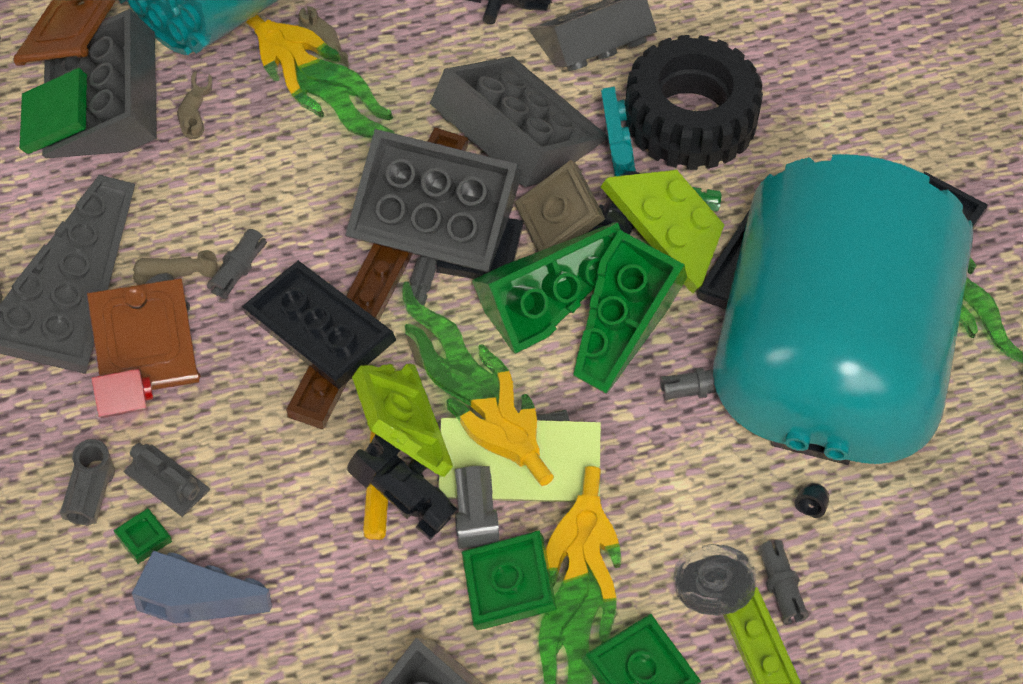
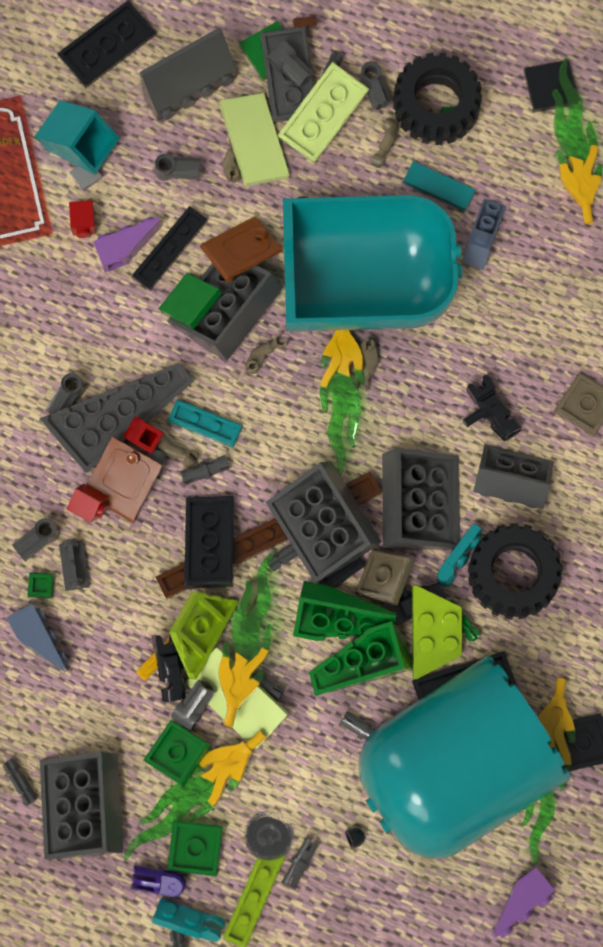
camera: 45 degrees right, 20 degrees up
(125, 264) = (143, 434): none -> red brick
(189, 220) = (205, 423): none -> teal tile

